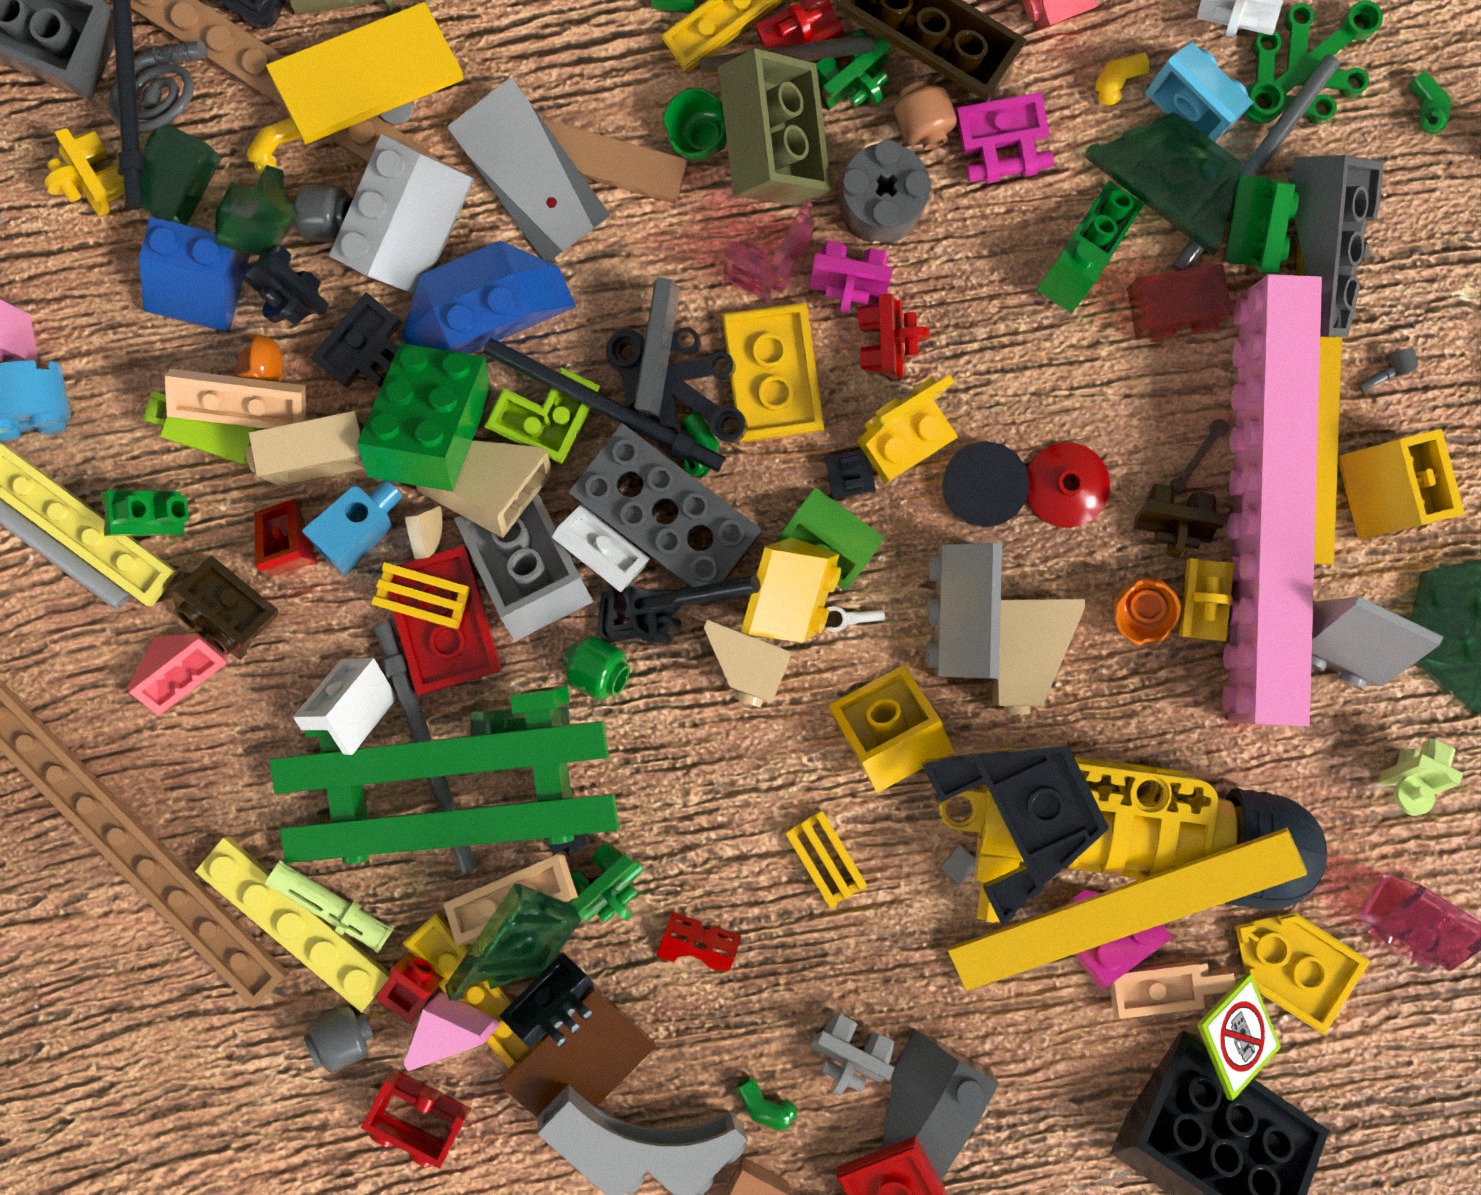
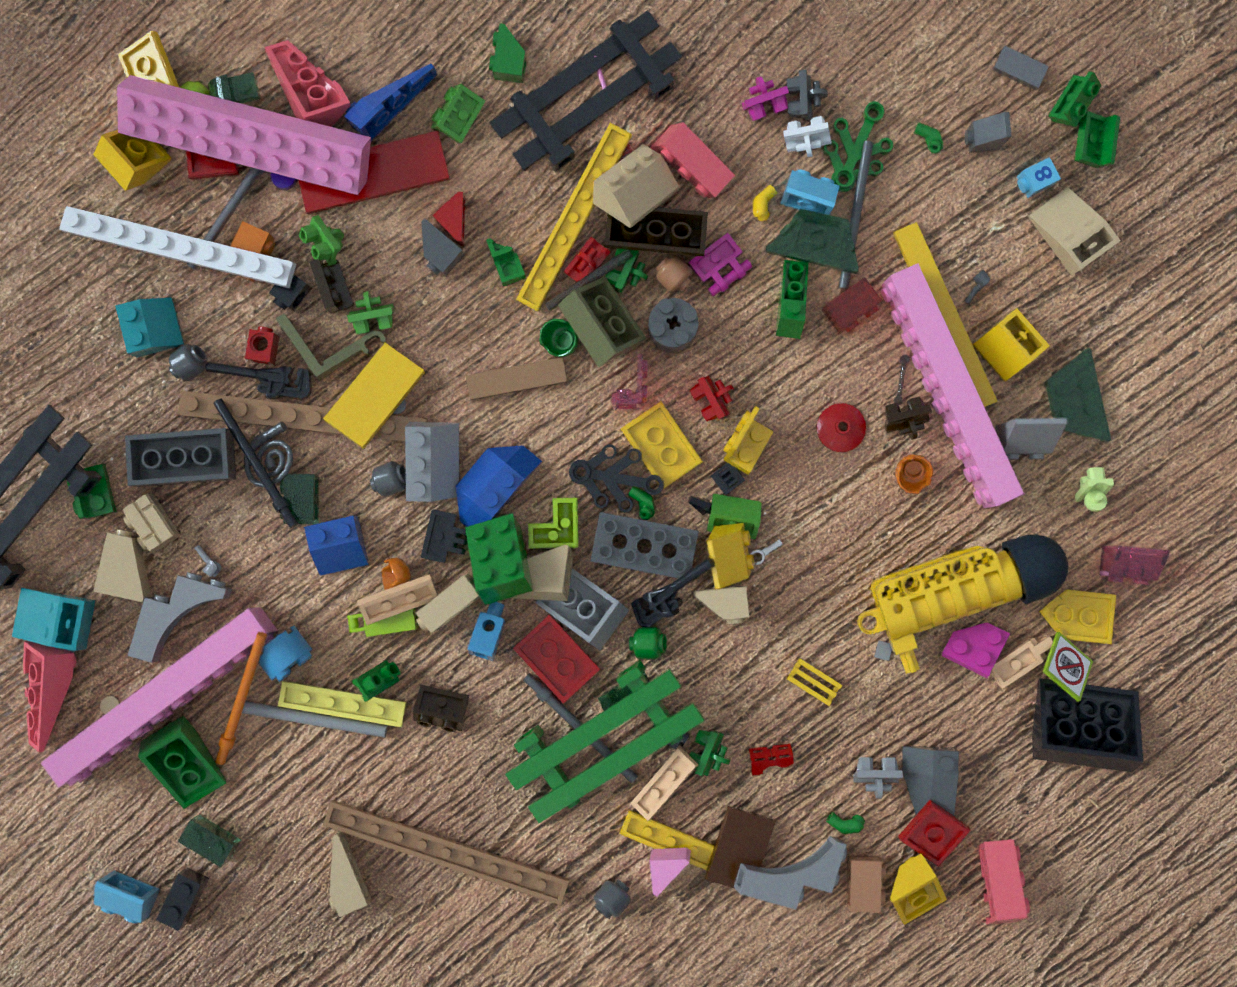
camera: 25 degrees left, 0 degrees up
(78, 154) = (245, 513): yellow hips -> none
(173, 669) = (430, 752): coral slope -> none
(256, 217) = (358, 498): clear green brick -> none
(267, 140) = (339, 456): yellow arm -> none
(280, 539) = (452, 657): red slope -> none
(285, 292) = (391, 529): black hips -> none
(298, 930) = (558, 852): light yellow plate -> none
(329, 906) = (573, 834): yellowish green pin -> none
(348, 703) = (530, 724): white panel -> none
(385, 585) = (519, 655): yellow tile -> none
(390, 1130) = (681, 932): red window -> none
(410, 987) = (635, 854): red bracket -> none
(424, 531) = (524, 617): tan tile -> none
(516, 941) = (679, 803): clear green wing -> none
(528, 170) = (483, 403): light grey sticker -> none
(550, 1003) = (711, 826): black hinge -> none
(601, 548) = (621, 581): white panel -> none
(657, 347) = (597, 463): dark grey tile -> none
(681, 443) = (634, 507): black bar -> none
(787, 494) = (700, 504): none -> black bar
(850, 278) = (678, 378): dark pink hips -> none
(891, 728) = (814, 598): yellow slope -> none
(965, 610) = (822, 520): light grey slope -> none
(985, 484) = (799, 449): black tile -> none
(1032, 649) = (864, 522): tan slope -> none
(1042, 806) = (910, 601): black wing -> none
(1129, 909) = (978, 632): yellow tile -> none
(1206, 600) = (941, 452): yellow hips -> none
(1261, 222) = (873, 246): green bracket -> none
(1331, 218) = (907, 224): dark grey wedge -> none

